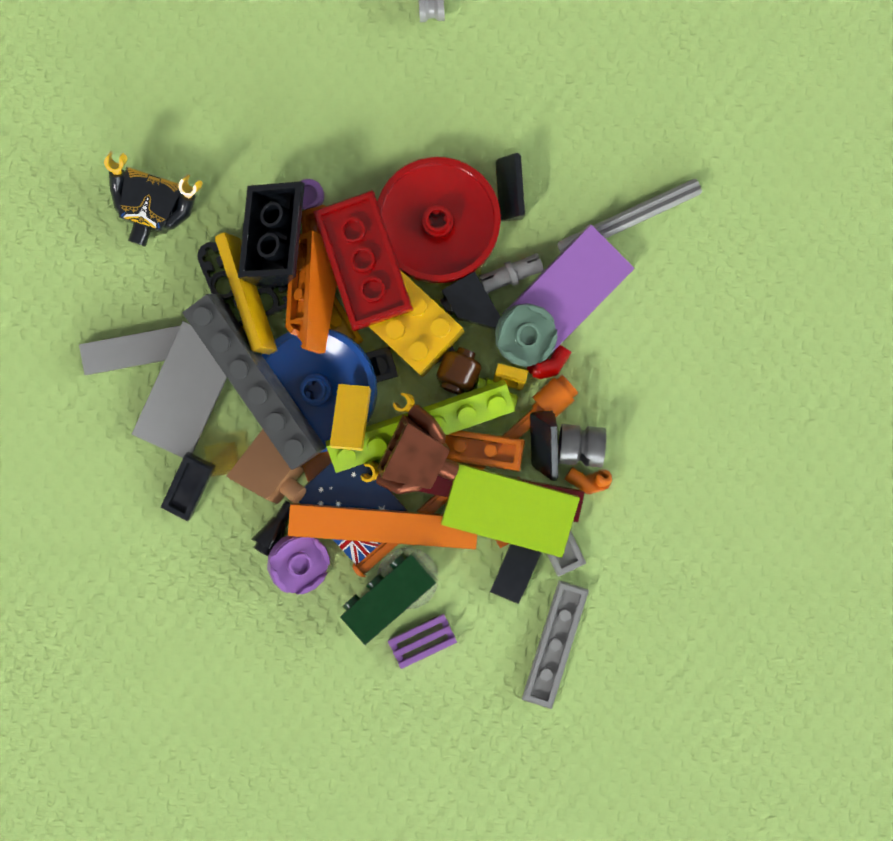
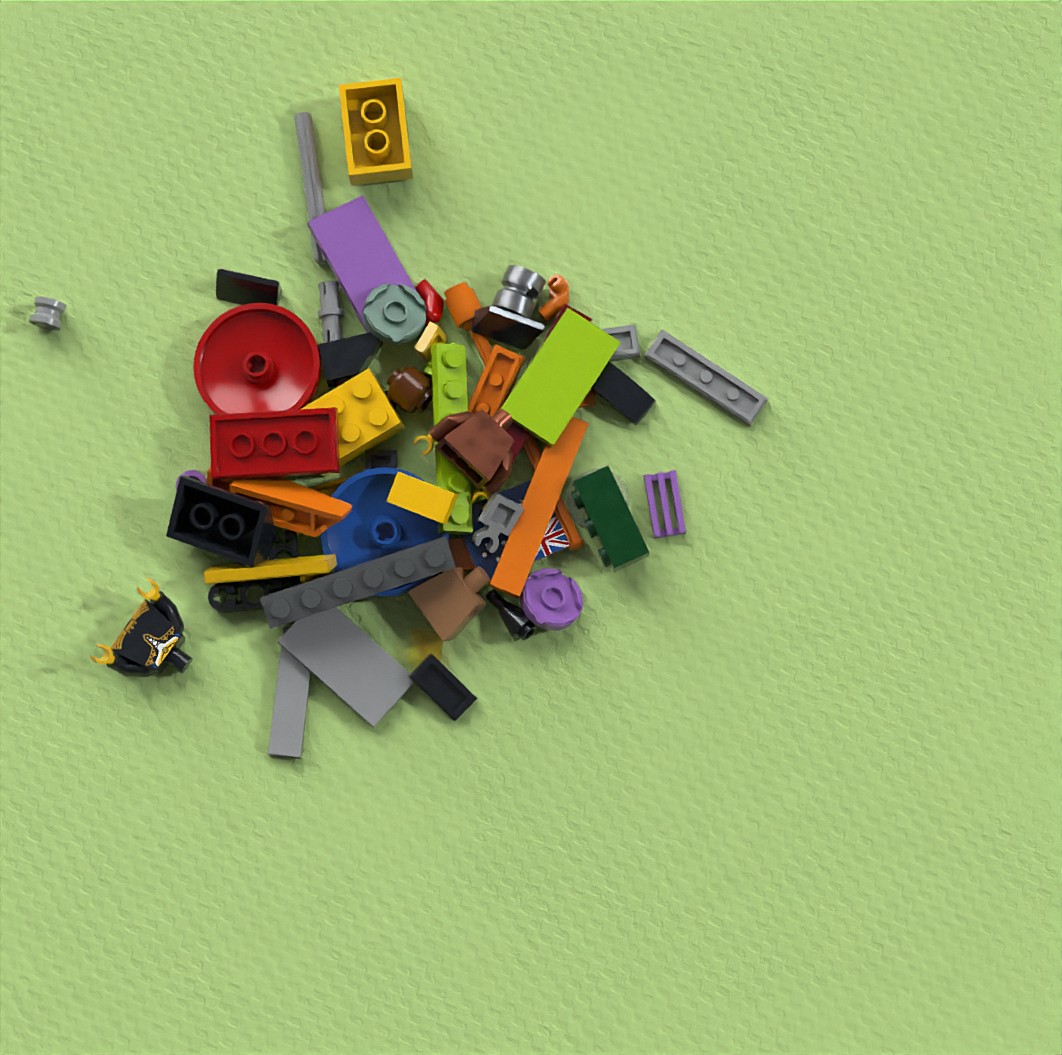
camera: 75 degrees left, 10 degrees down
(356, 493) = (498, 516): none -> light grey plate
(700, 261) = (375, 131): none -> yellow brick

